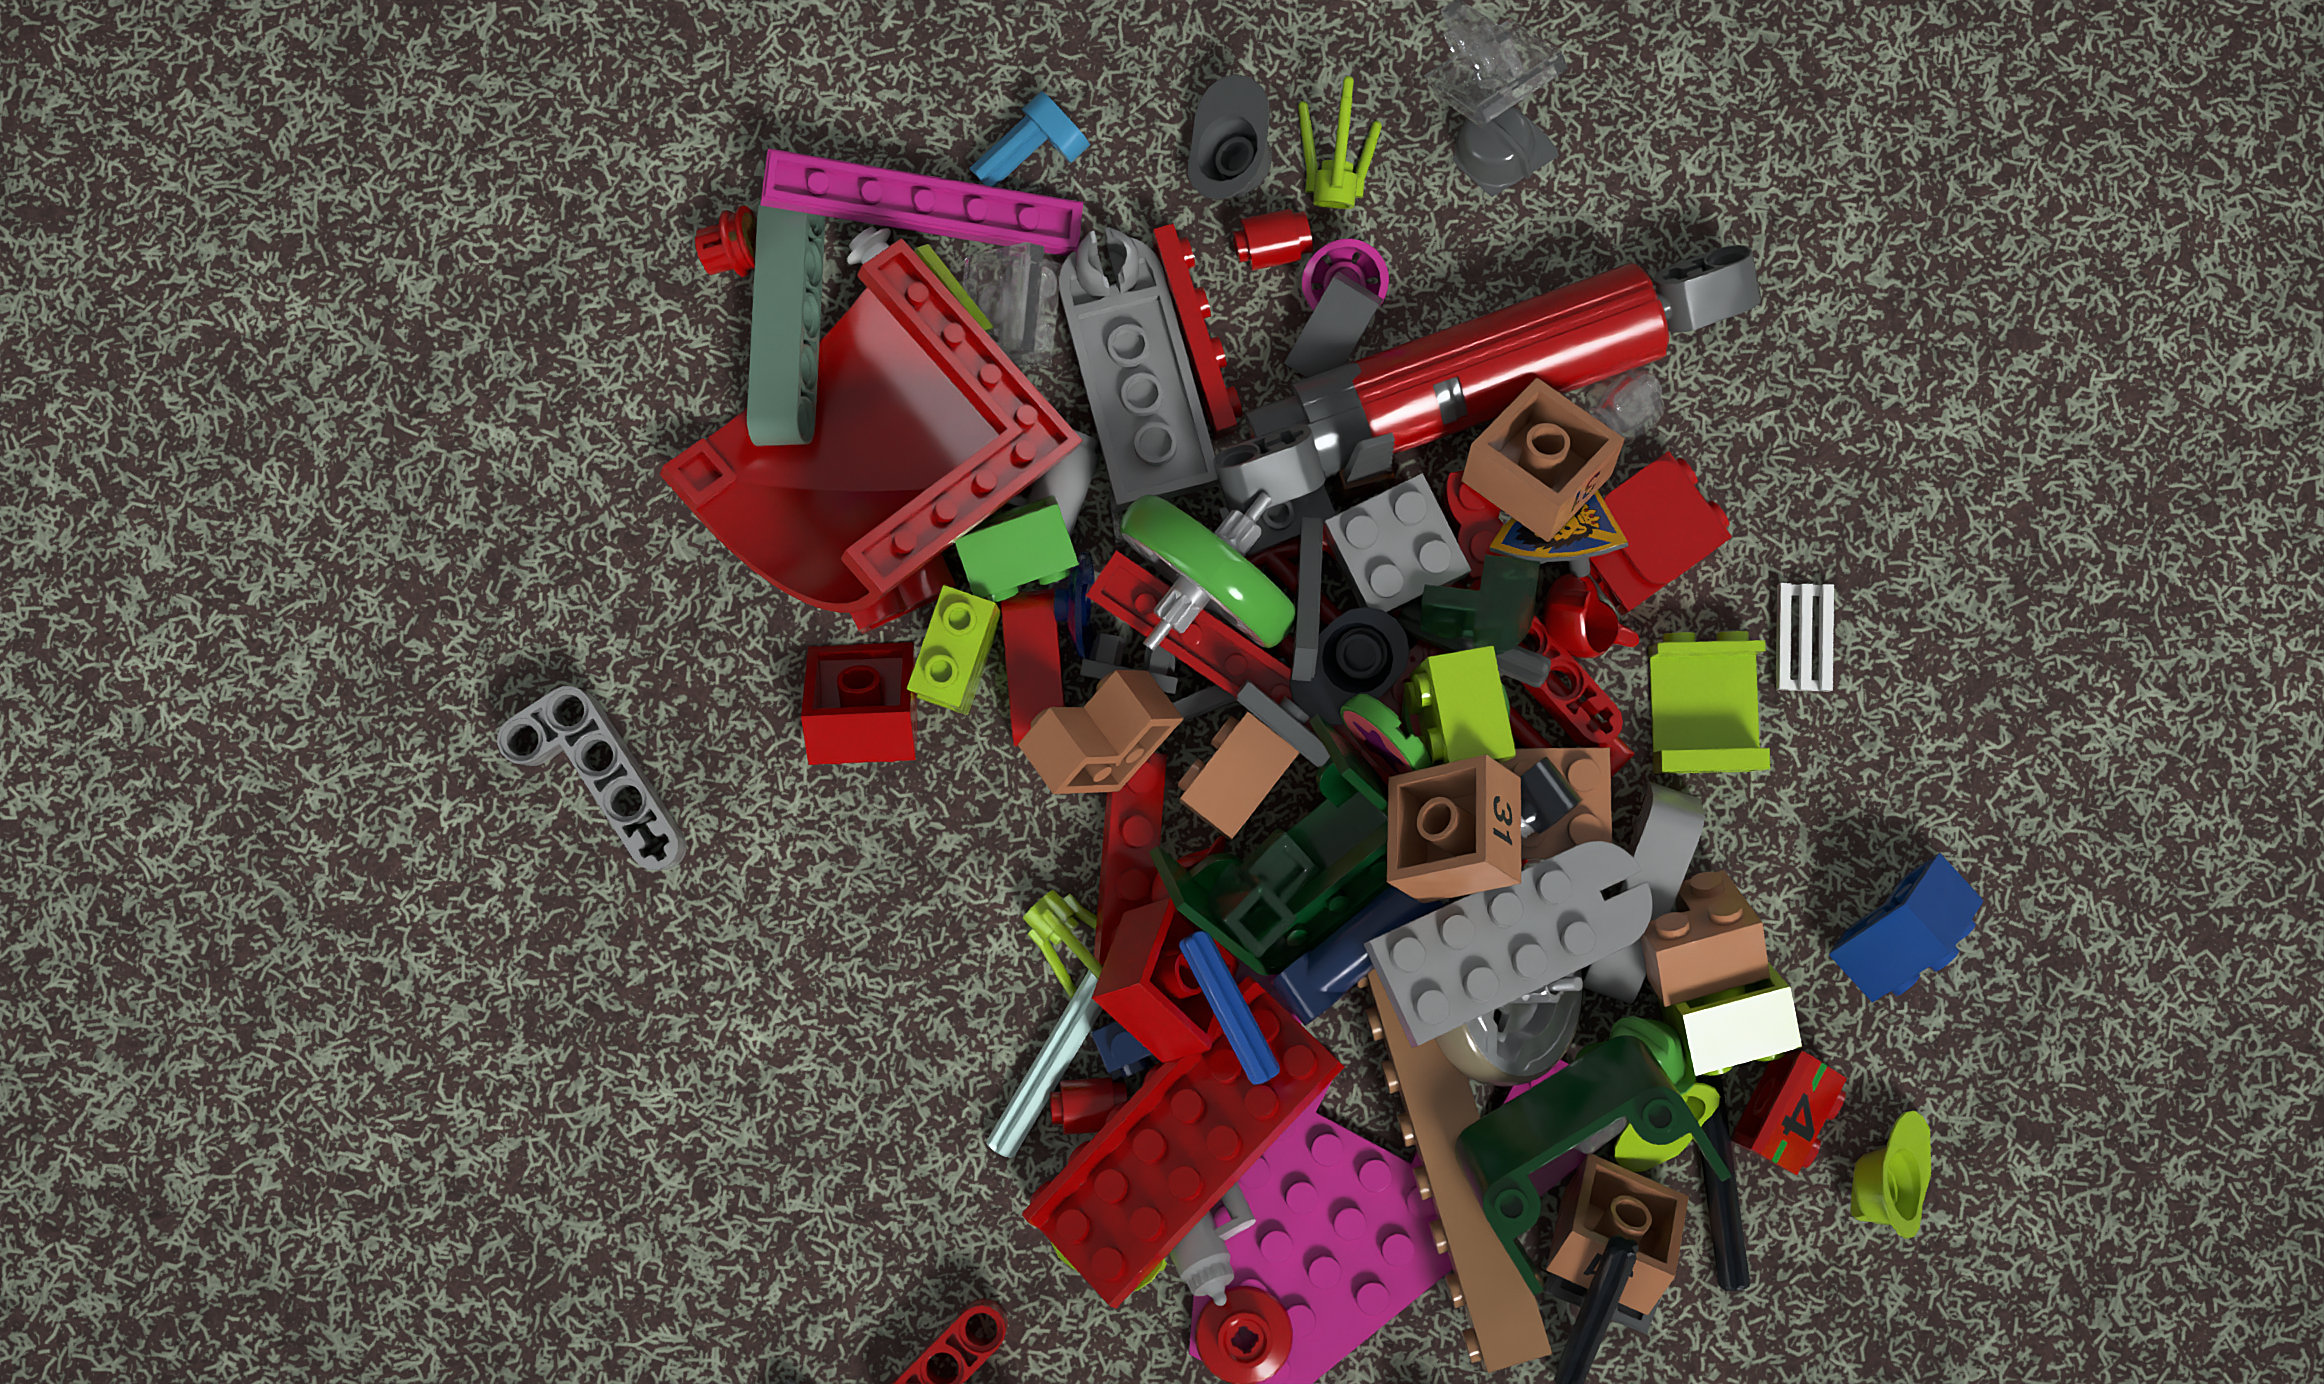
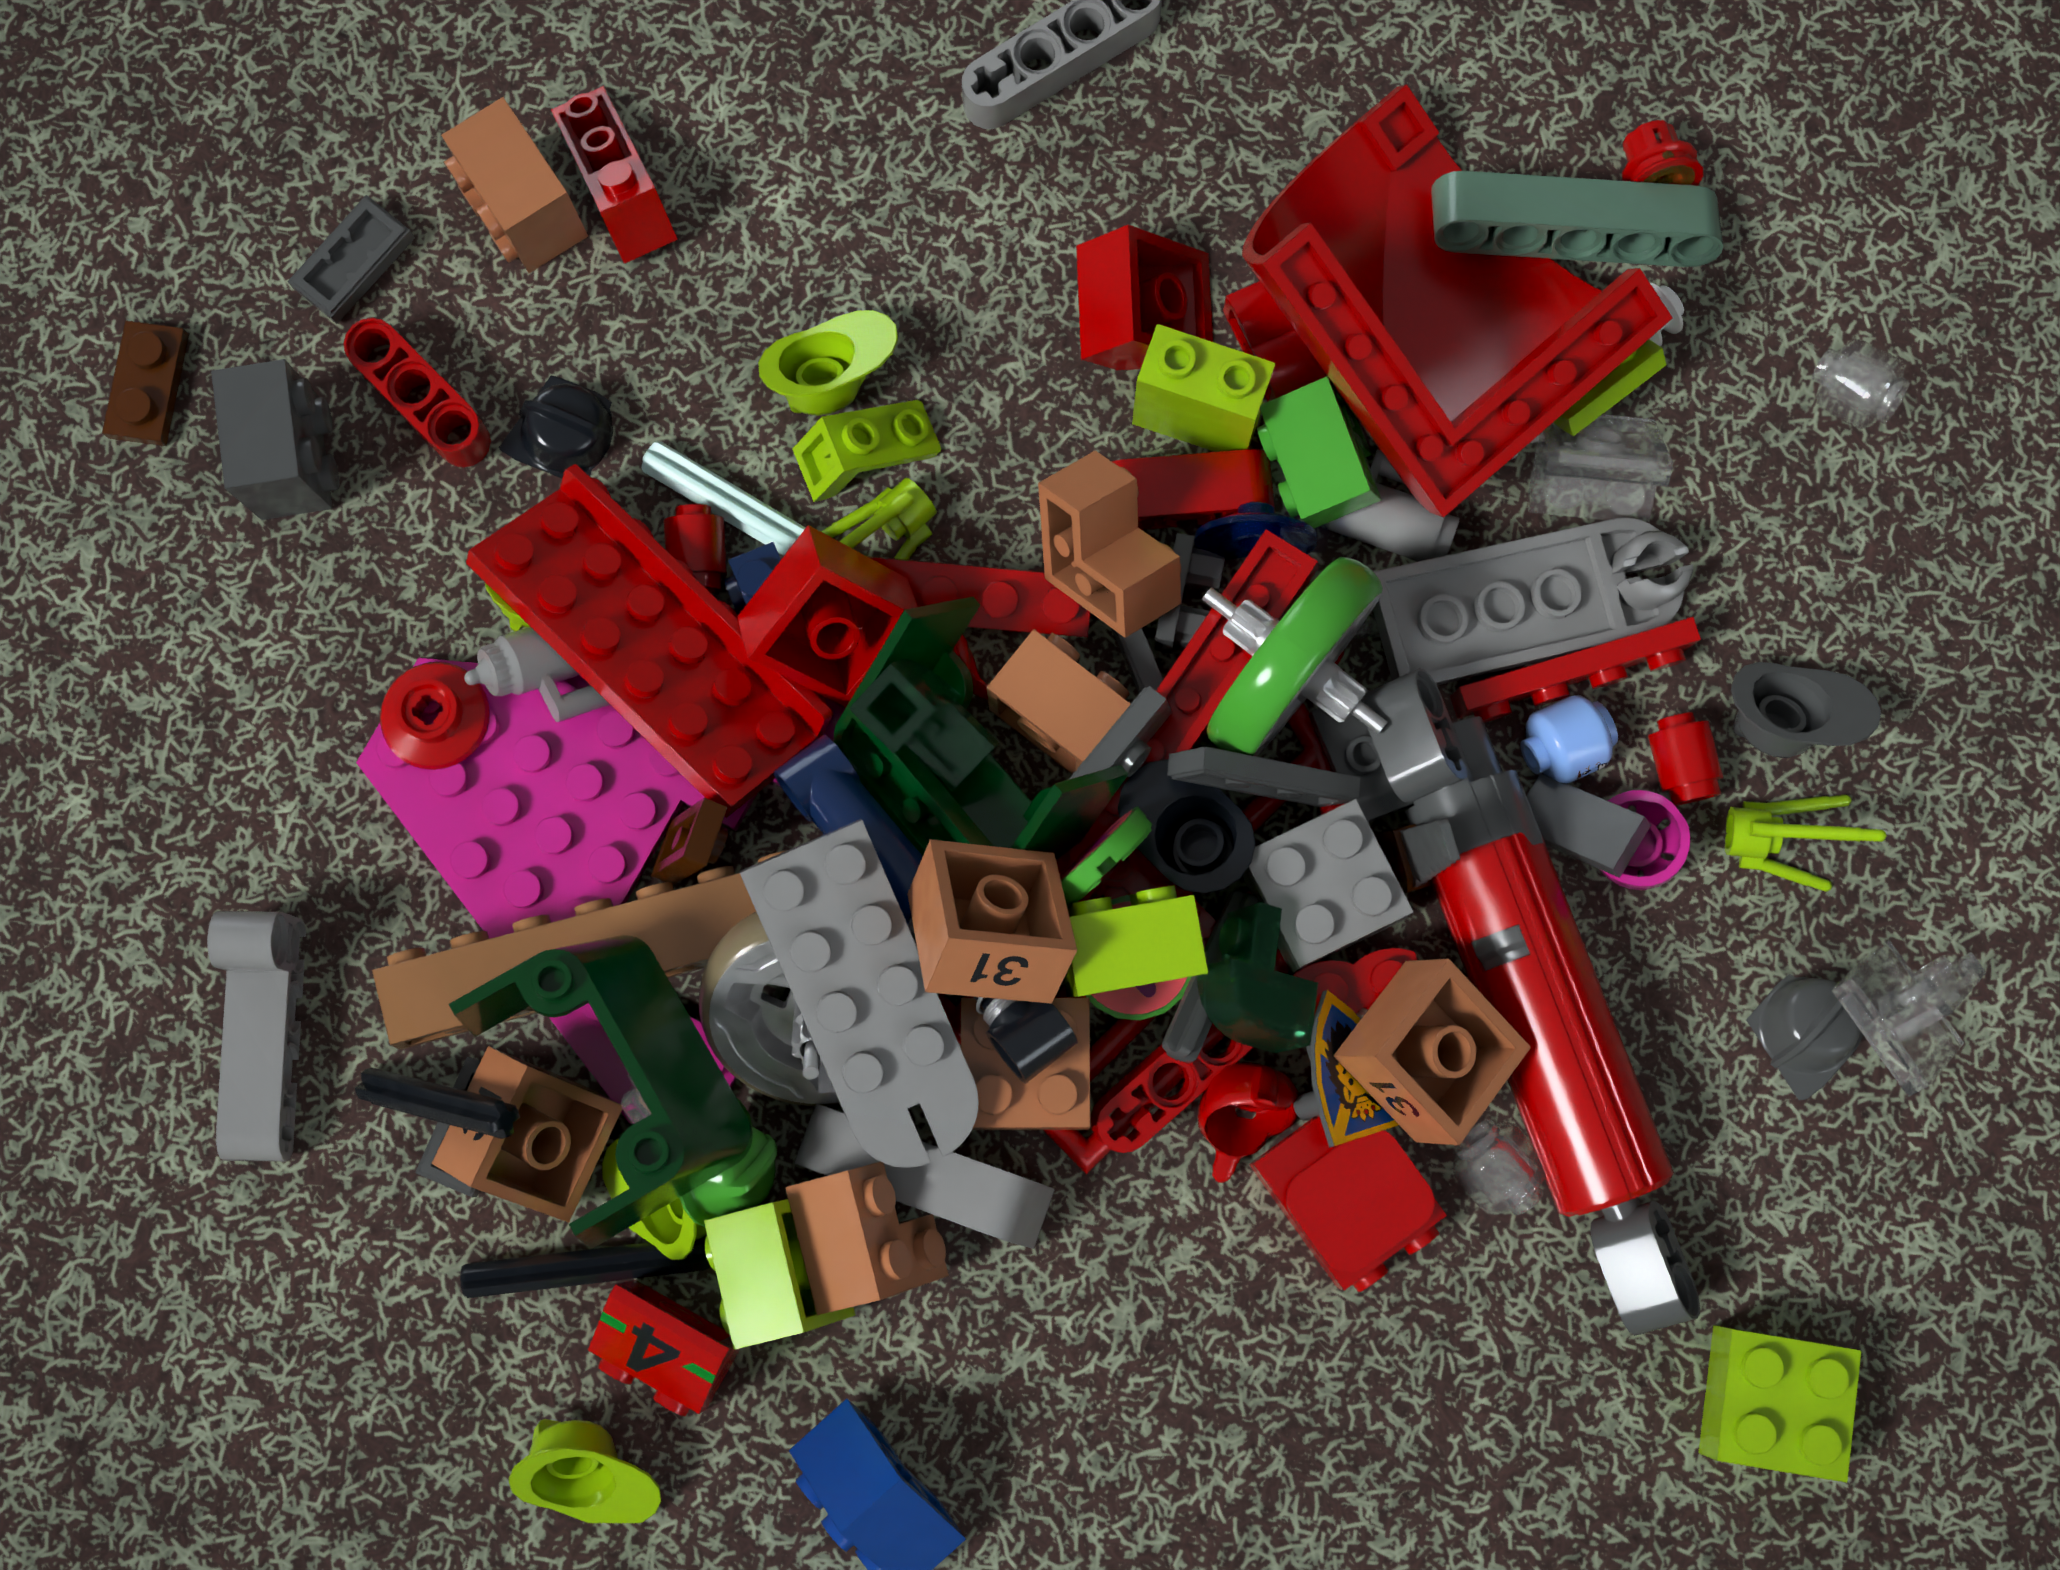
camera: 95 degrees right, 5 degrees down
(731, 1193) = (614, 174): none -> red slope
(752, 1281) = (512, 187): none -> nougat brick
(915, 987) = (828, 363): none -> lime piece
(919, 202) = (1713, 360): dark pink tile -> none
(937, 77) = (1860, 383): none -> clear head
(973, 1232) = (561, 429): none -> black piece
(992, 954) = (863, 441): none -> lime bracket
(1042, 123) = (1811, 500): dark azure piece -> none
(1229, 1007) = (795, 681): blue axle -> none
(1256, 338) = (1569, 739): none -> light blue head
(1362, 1098) = (691, 841): none -> reddish brown plate
(1706, 704) = (1145, 1262): lime panel -> none
(1783, 641) = (1279, 1386): white tile -> none
(1812, 183) = (1780, 1403): none -> lime brick

